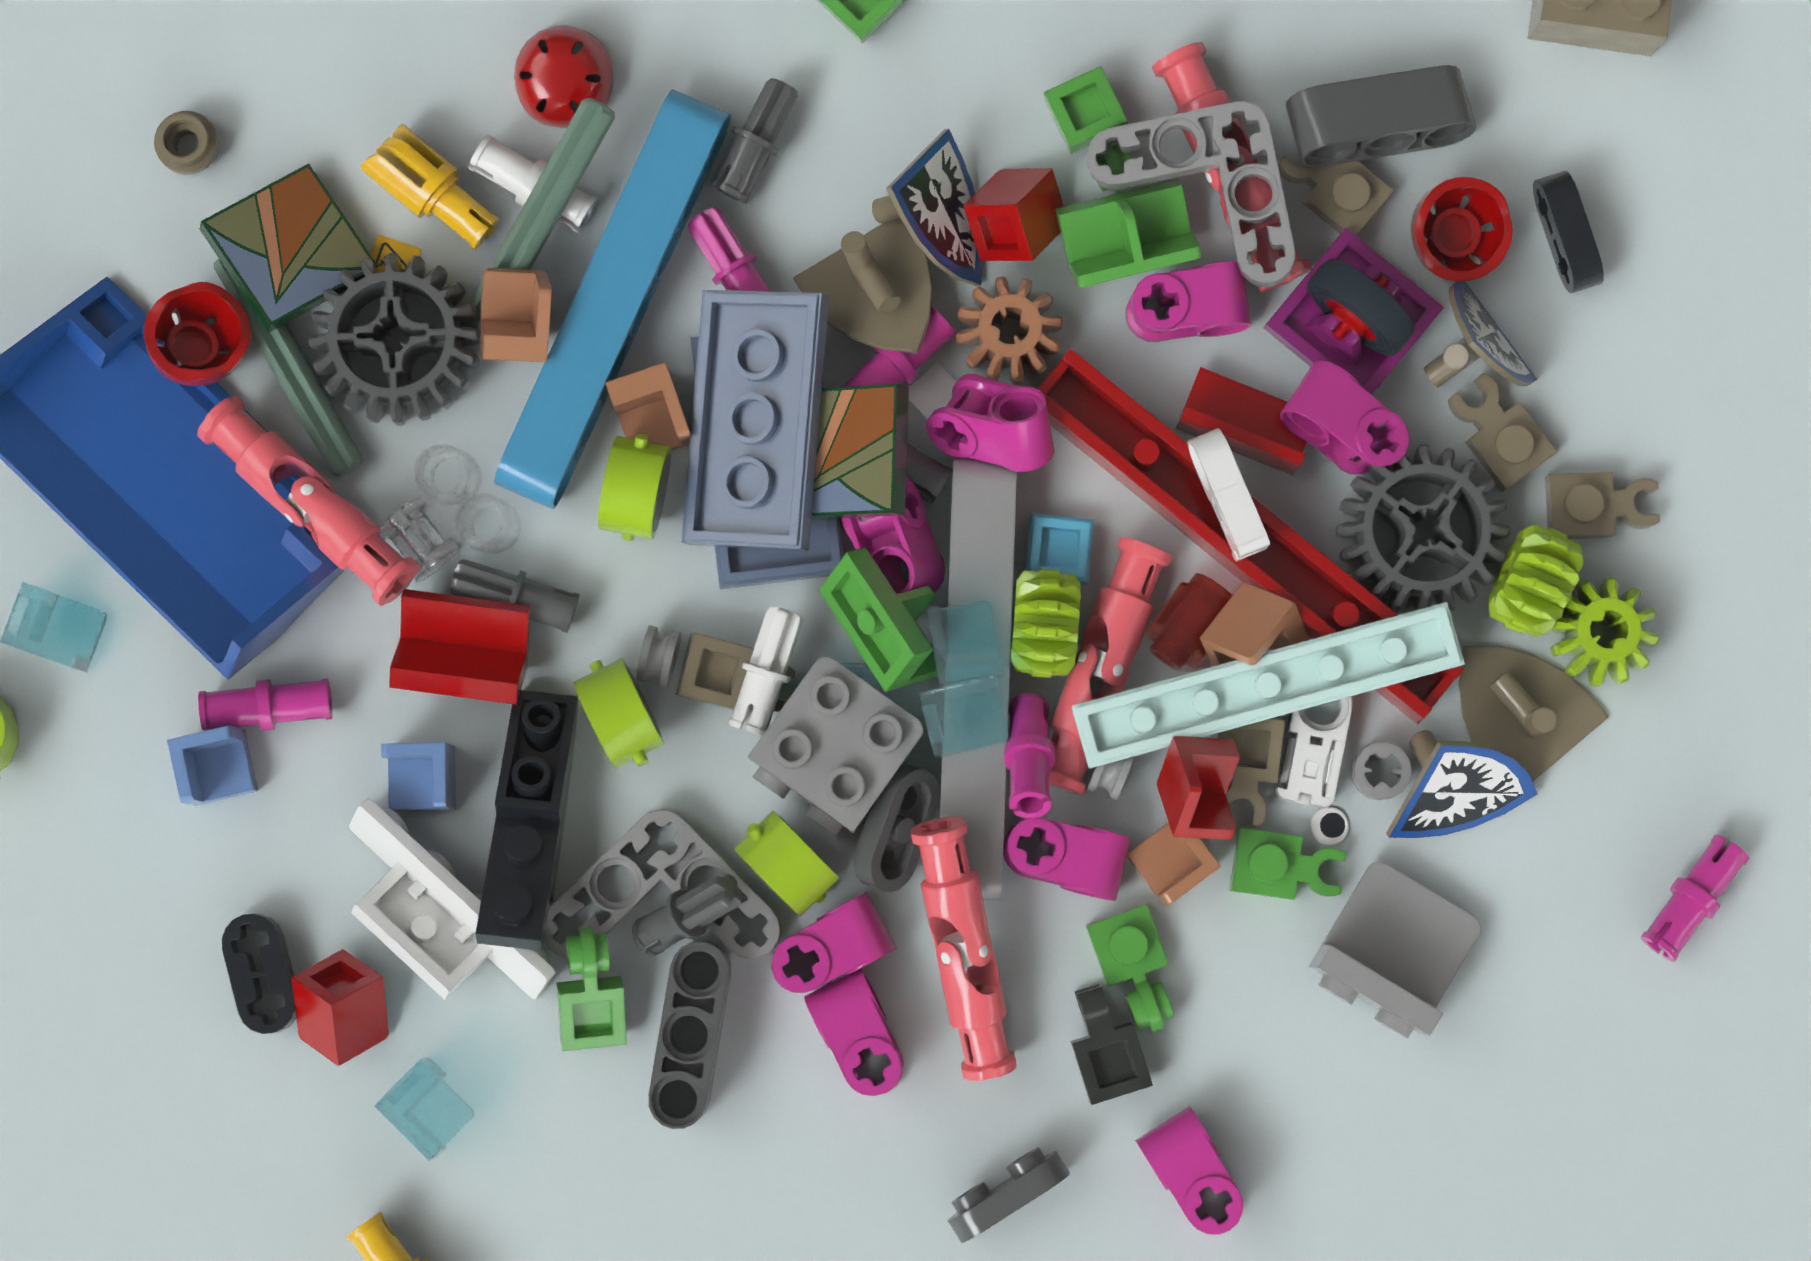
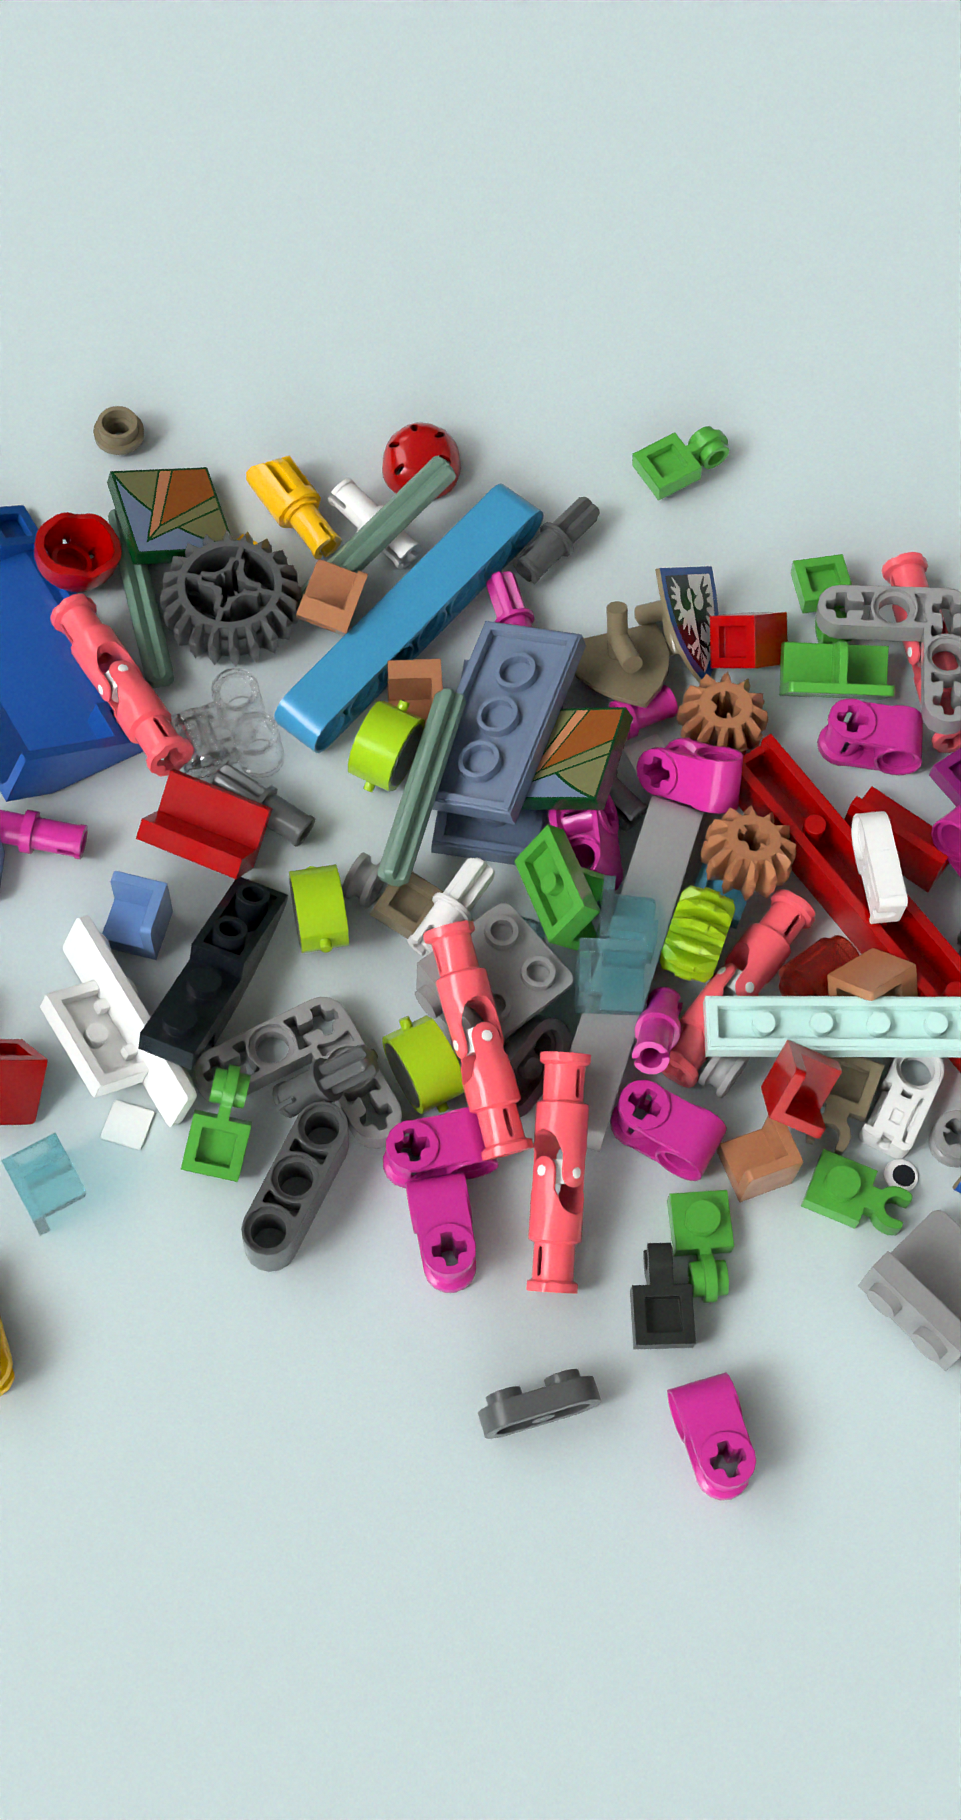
camera: 10 degrees right, 20 degrees down
(487, 1008) = (127, 1125): none -> white sticker
(691, 536) = (421, 788): none -> sand green axle
(858, 871) = (485, 1066): none -> coral piece
(1093, 491) = (748, 853): none -> nougat gear

